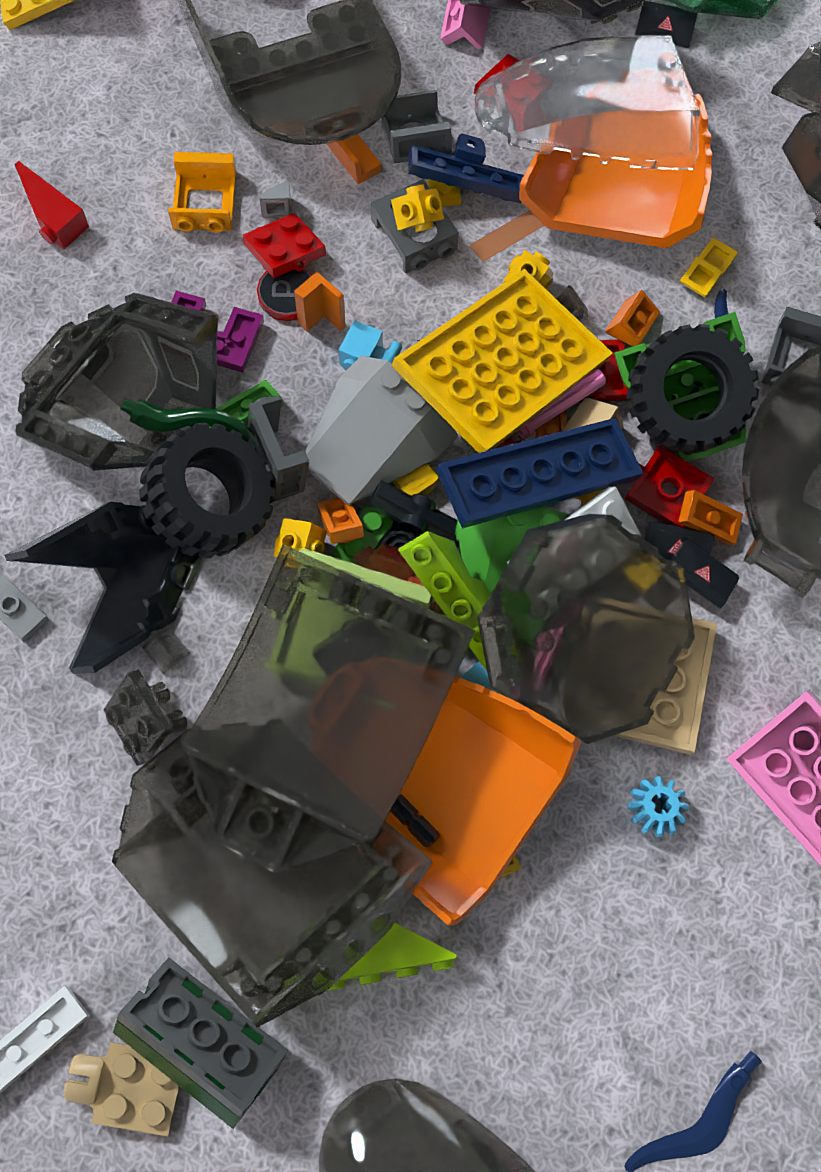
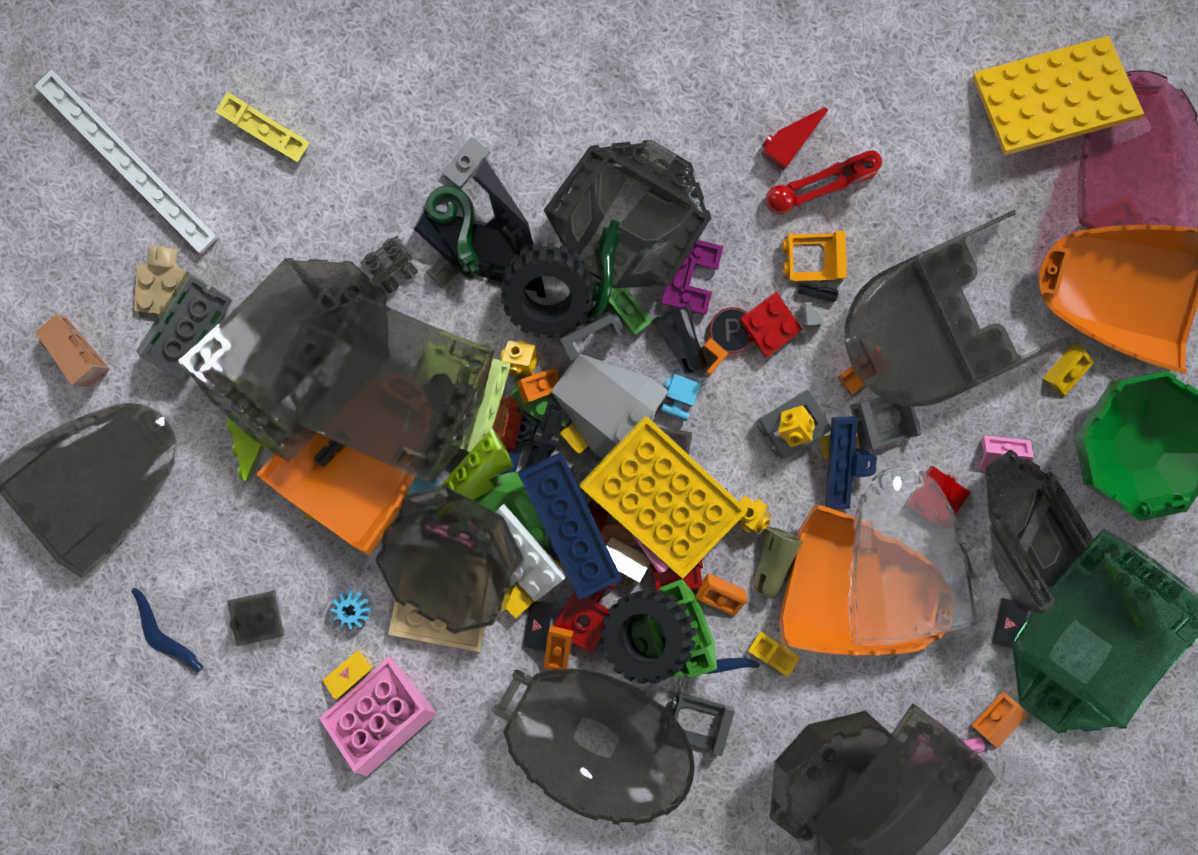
camera: 95 degrees right, 20 degrees up
(123, 222) = (782, 199): none -> red piece
(138, 604) = (464, 249): none -> dark green plant
(250, 190) = (822, 292): none -> black piece
(290, 342) = (680, 334): none -> black piece
(506, 235) = (793, 492): nougat sticker -> none
(573, 303) = (730, 545): clear smoke slope -> none
(589, 254) = (777, 555): none -> olive piece
(672, 957) = (255, 618): none -> clear smoke plate
(705, 573) = (516, 642): black slope -> none
(756, 819) = (347, 674): none -> yellow slope
(777, 40) = (1000, 719): none -> orange panel

